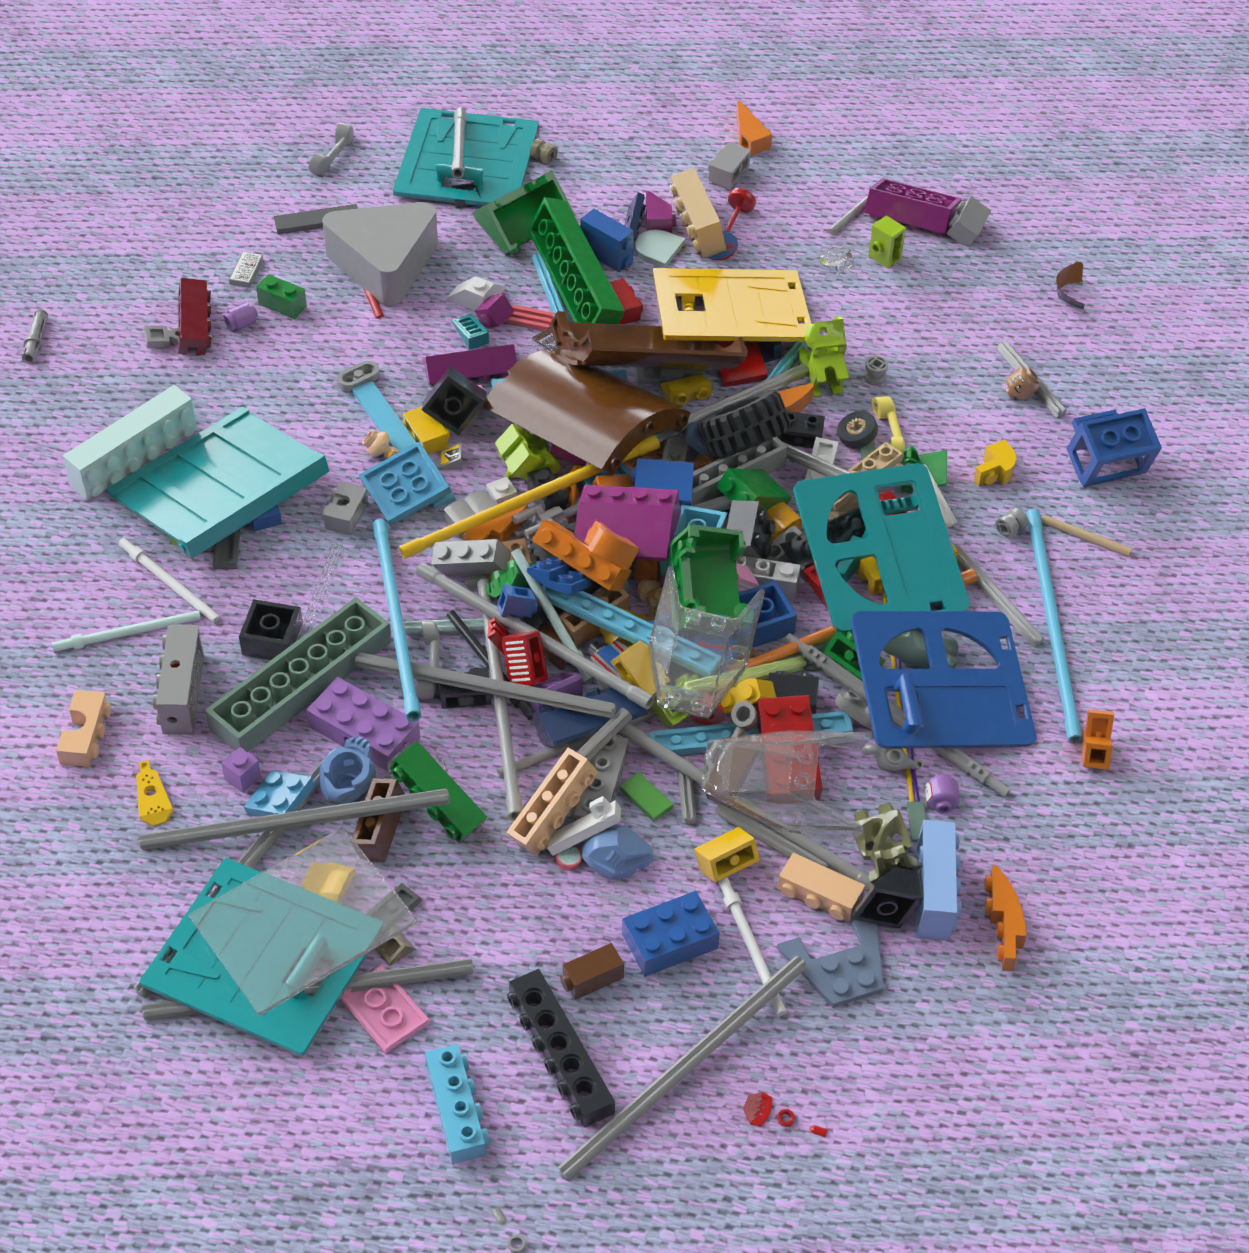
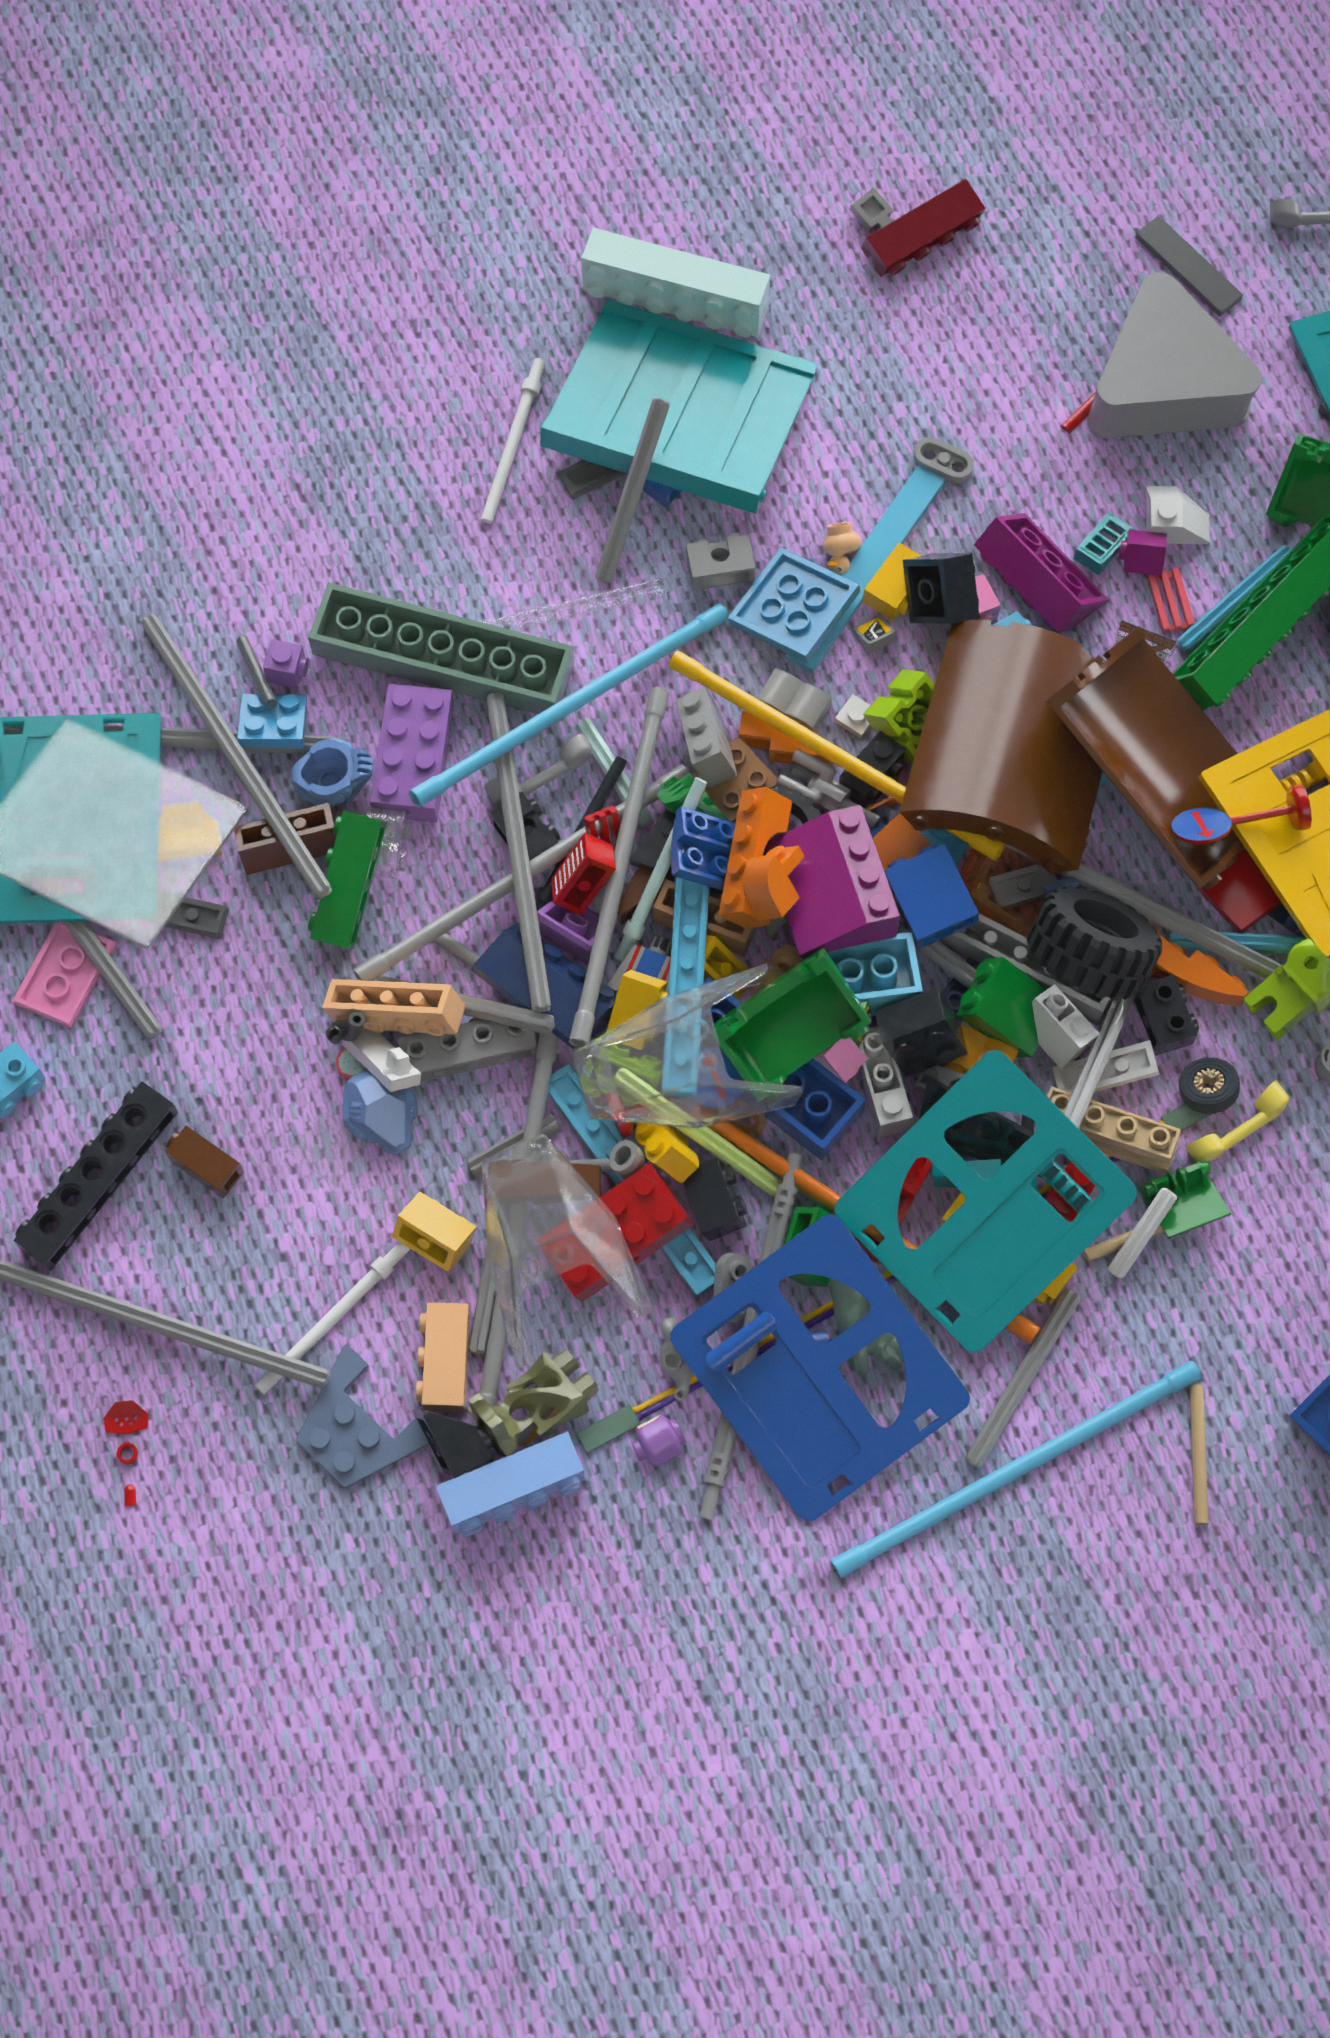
camera: 65 degrees right, 20 degrees up
(33, 340) = (781, 90): light grey pin -> none
(78, 641) = (377, 403): light aqua bar -> none
(81, 745) = (236, 490): light nougat arch -> none
(156, 808) = (205, 603): yellow piece -> none
(179, 679) = (364, 532): light grey brick -> none
(235, 788) = (256, 672): none -> dark grey bar
(240, 316) = (958, 278): medium lavender brick -> none
(246, 269) = (1048, 238): tile -> none
(268, 518) = (632, 490): none -> light grey axle
(269, 629) = (487, 583): black brick -> none
(281, 296) = (1018, 303): green brick -> none
(395, 949) = (153, 953): dark tan slope -> none
(517, 602) = (646, 822): blue brick -> none
(551, 836) = (346, 1029): none -> pearl dark grey arm
(628, 301) = (1260, 694): red brick -> none
(646, 797) = (480, 1105): bright green tile -> none
(670, 933) = (296, 1220): blue brick -> none
(687, 389) = (1140, 840): yellow bracket -> none
(717, 304) = (1212, 825): none -> piece
(785, 469) = (1061, 1027): none -> white slope
(998, 464) = (1253, 1297): yellow brick -> none
(1006, 914) = (524, 1580): orange slope -> none
(1013, 522) = (1157, 1349): light grey wheel -> none
(1097, 739) = (835, 1597): orange brick -> none

